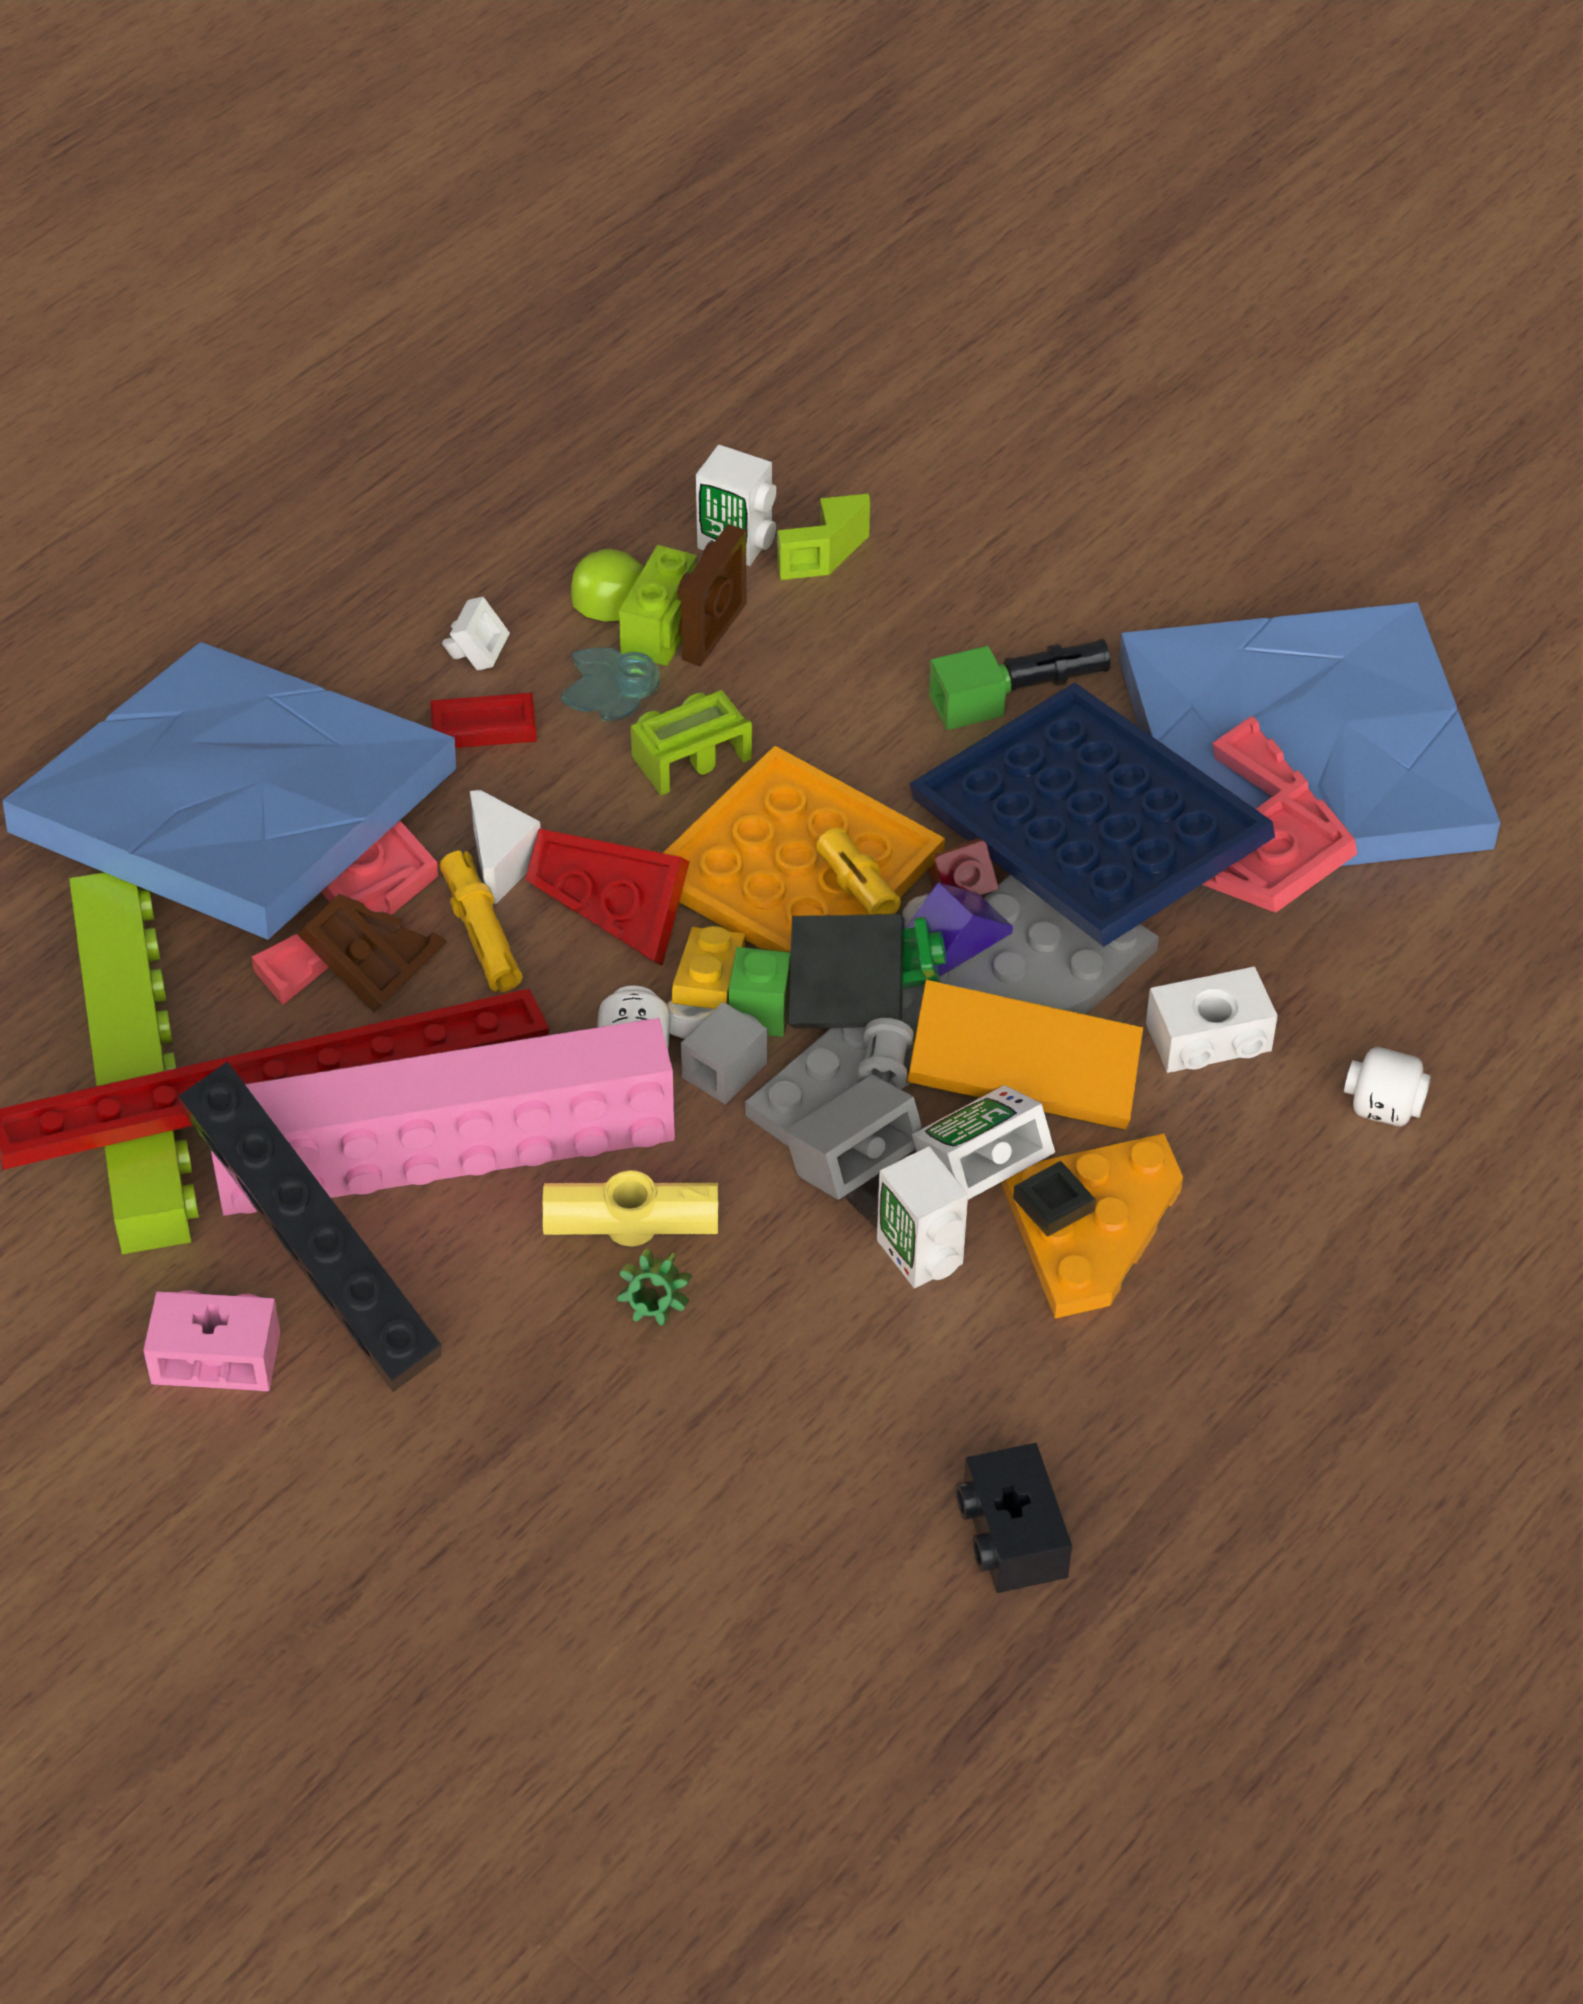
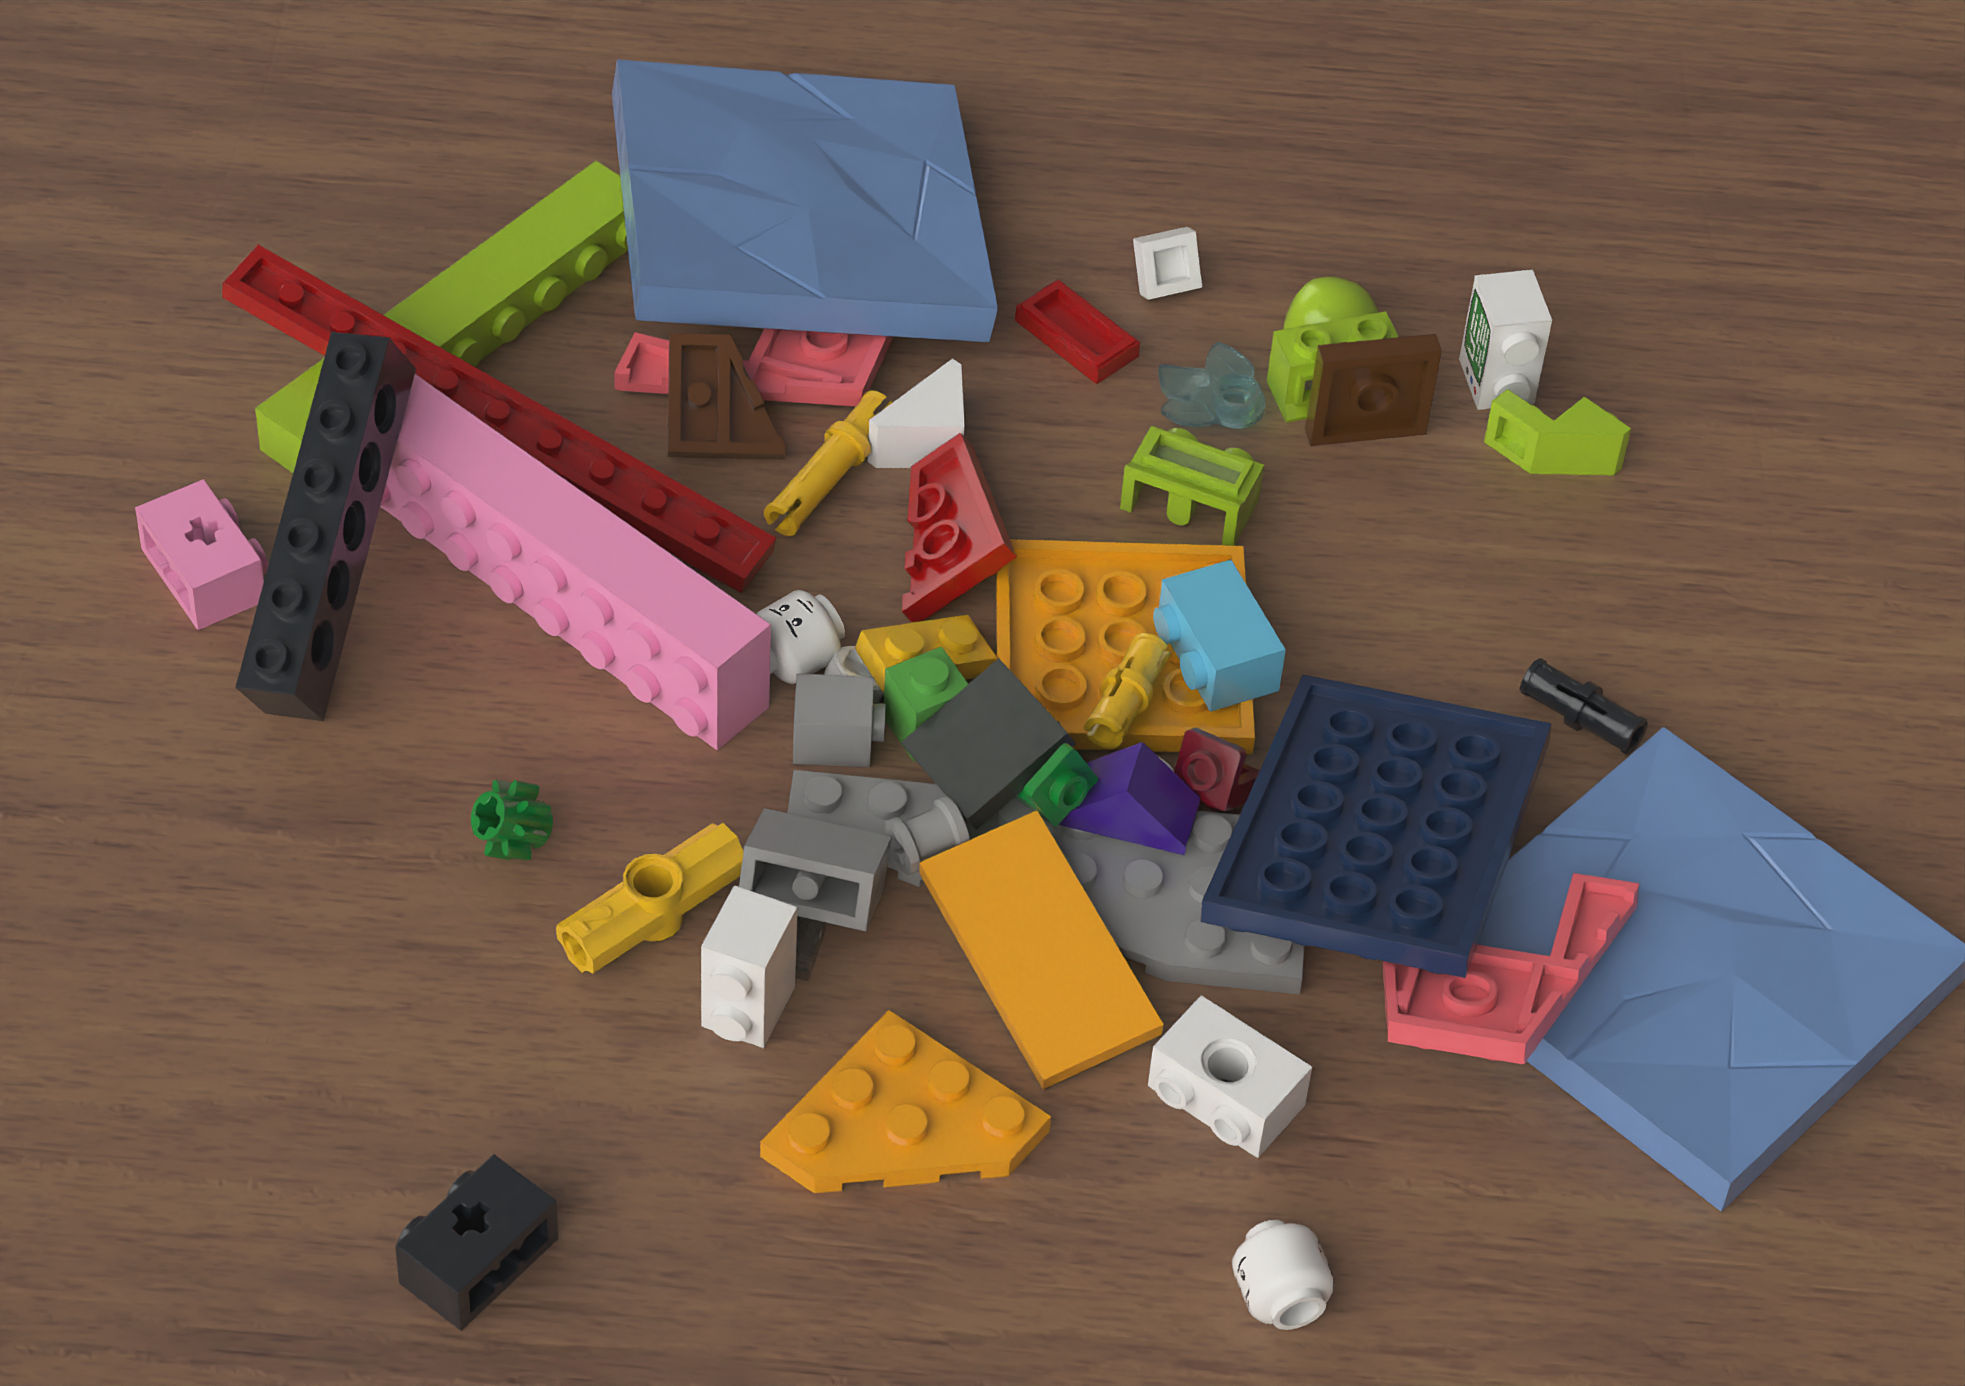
camera: 50 degrees right, 0 degrees up
(630, 1208) = (590, 754): light yellow piece -> none
(800, 1267) = (651, 898): none -> yellow piece
(860, 794) = (1219, 635): none -> medium azure brick
(968, 687) = (1474, 651): bright green brick -> none
(989, 1139) = (892, 971): white brick -> none
(1054, 1198) = (872, 1062): pearl dark grey tile -> none

